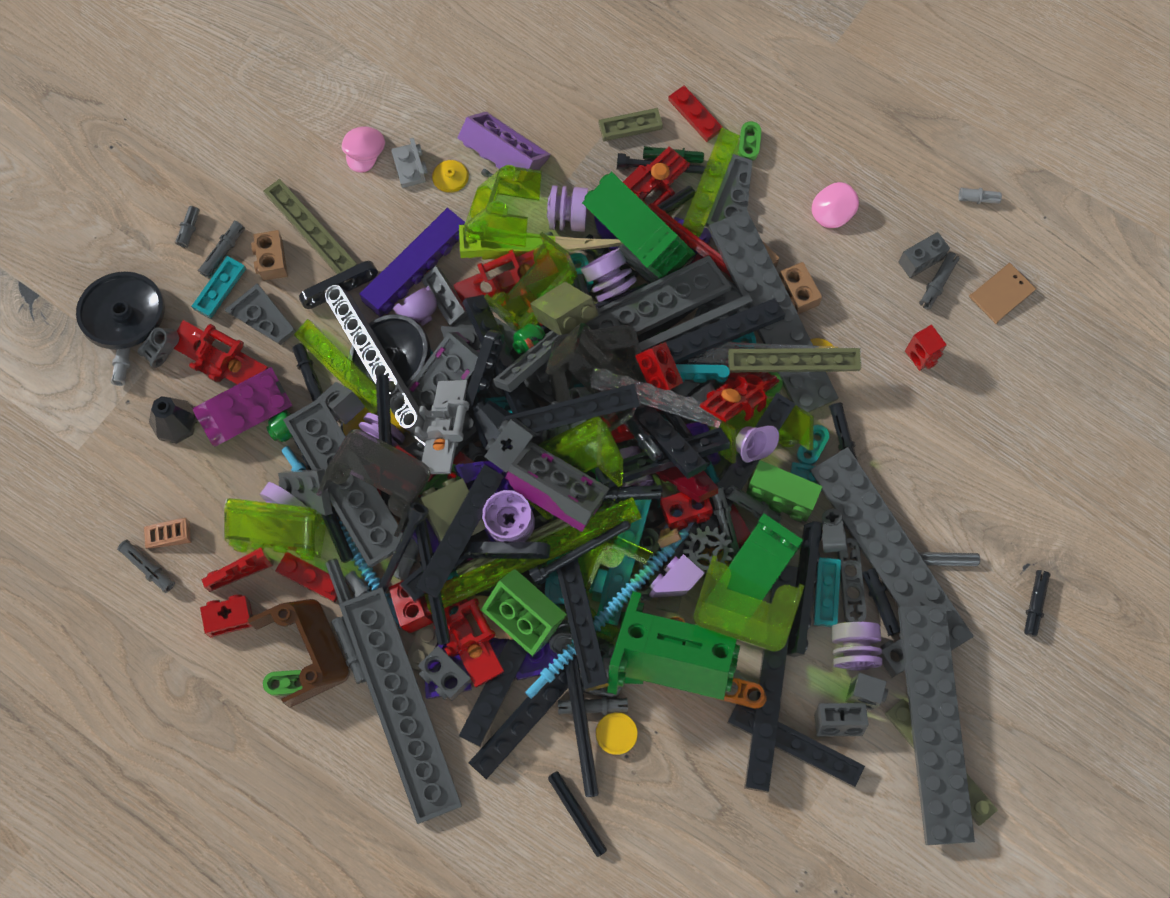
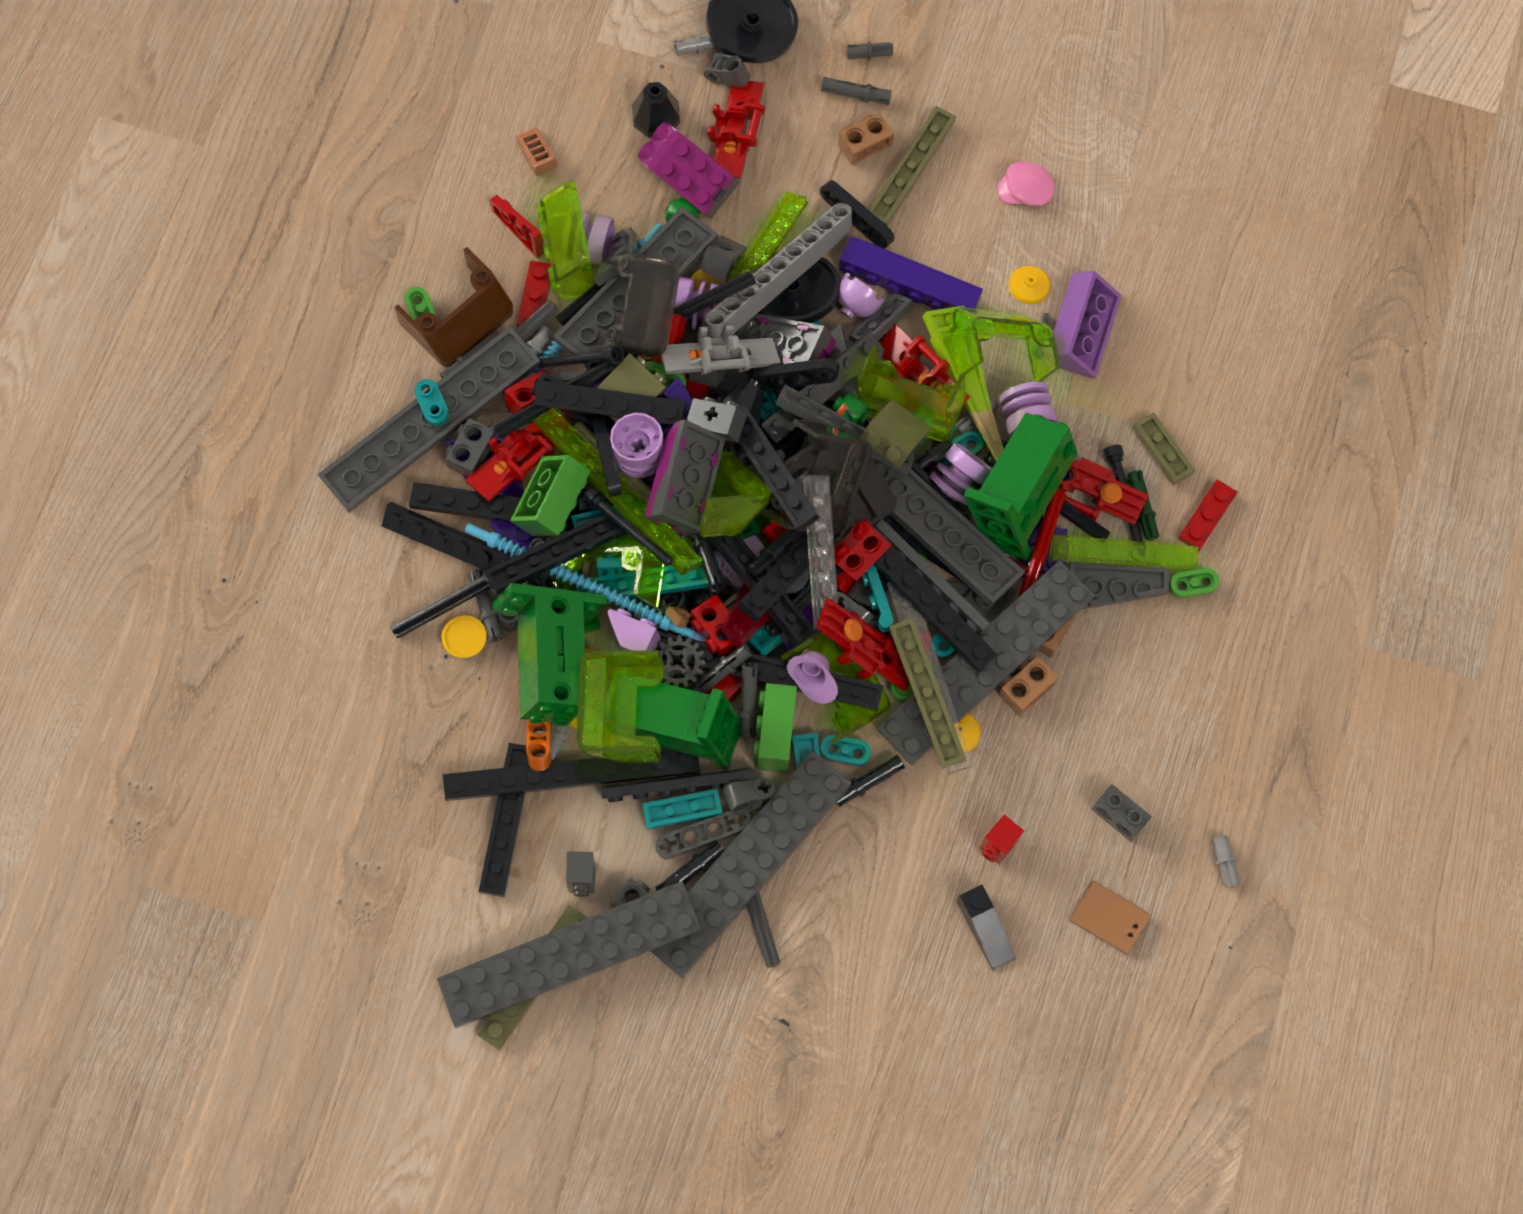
camera: 70 degrees right, 0 degrees up
(162, 582) = (493, 151): dark grey pin -> none
(213, 613) = (460, 225): red brick -> none
(218, 287) = (813, 103): teal plate -> none
(261, 314) = (798, 153): dark grey wing -> none
(305, 364) = (755, 215): black axle -> none
(387, 696) = (431, 401): none -> teal plate
(408, 164) = (1024, 238): light grey bracket -> none
(577, 814) = (372, 623): black axle -> none
(835, 205) = (1148, 700): bright pink piece -> none
(841, 719) = (544, 855): dark grey brick -> none
(857, 650) = (627, 850): lavender wheel -> none
(935, 287) = (1097, 840): dark grey pin -> none
(986, 385) = (986, 926): none -> slope
(1036, 605) = (742, 1040): black axle -> none

